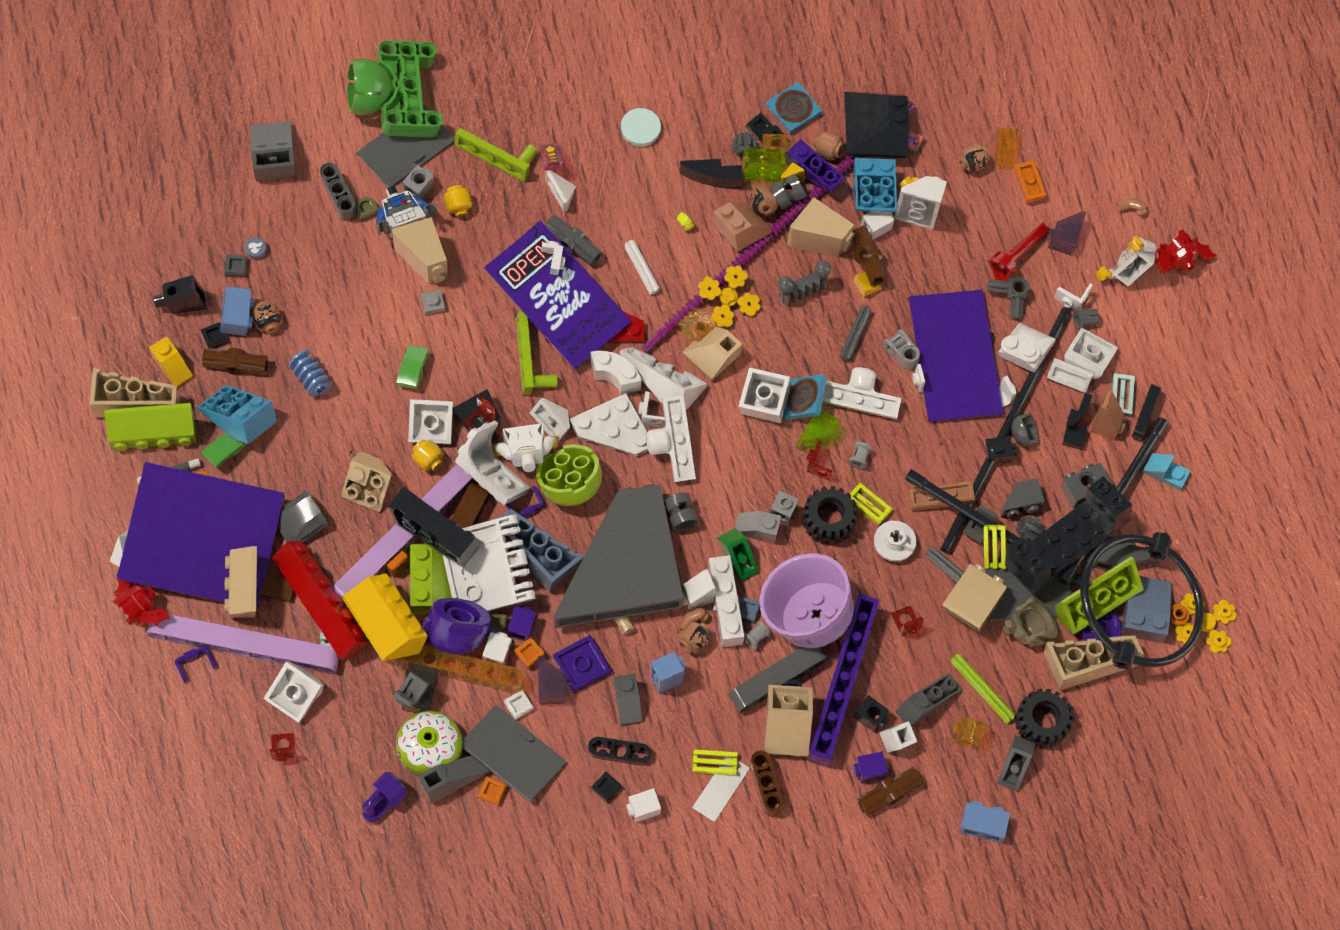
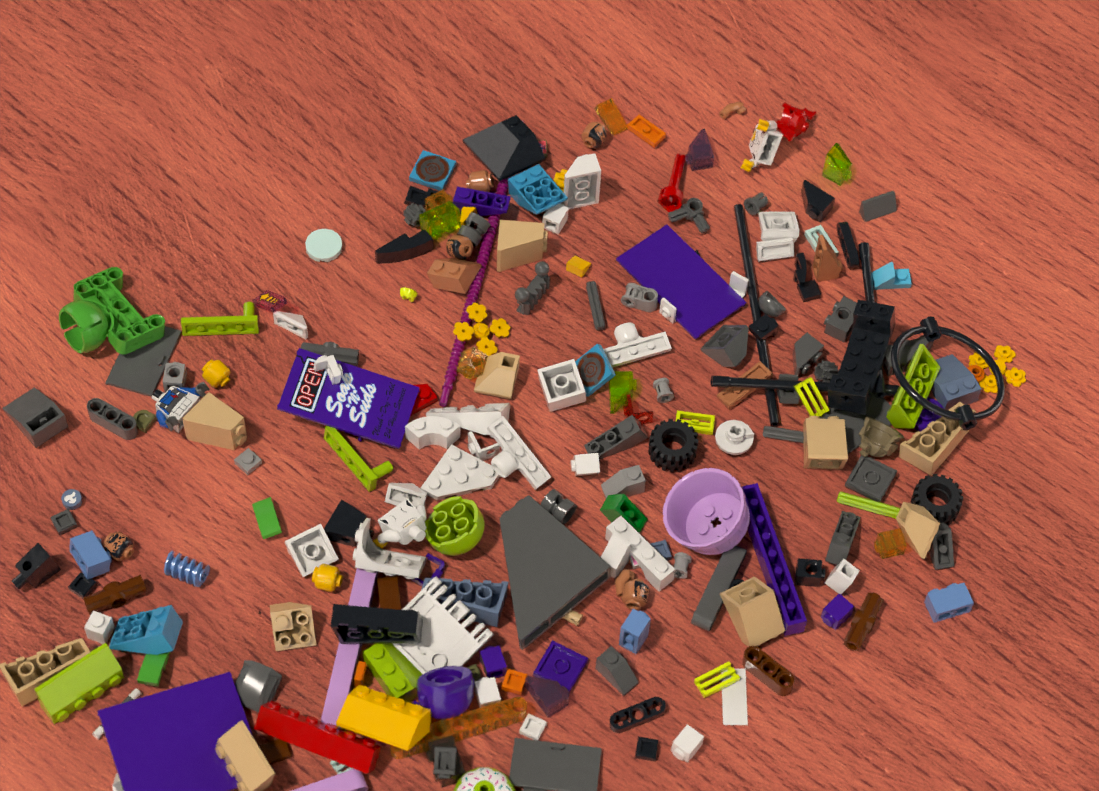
camera: 30 degrees left, 10 degrees down
(170, 362) = (59, 624): yellow slope -> none
(201, 384) = (99, 627): none -> white brick
(484, 409) = (352, 515): clear red bracket -> none
(642, 267) = (397, 345): white axle -> none
(734, 485) = (585, 464): none -> white brick
(782, 477) = (618, 438): none -> dark grey slope
(785, 506) = (634, 456): light grey brick -> none
(868, 256) = (568, 245): reddish brown piece -> none
(910, 627) = (792, 491): clear red bracket -> none
(953, 446) = (727, 345): none -> dark grey slope
(998, 658) = (870, 478): none -> dark grey plate
(1002, 733) = (917, 527): none -> tan slope
(1026, 347) = (729, 247): white slope -> none
(1069, 300) = (736, 196): white bracket -> none
(1147, 350) = (816, 201): none -> black slope
(1193, 324) = (837, 165): none -> clear neon green slope
(1206, 389) = (878, 206): none -> dark grey slope

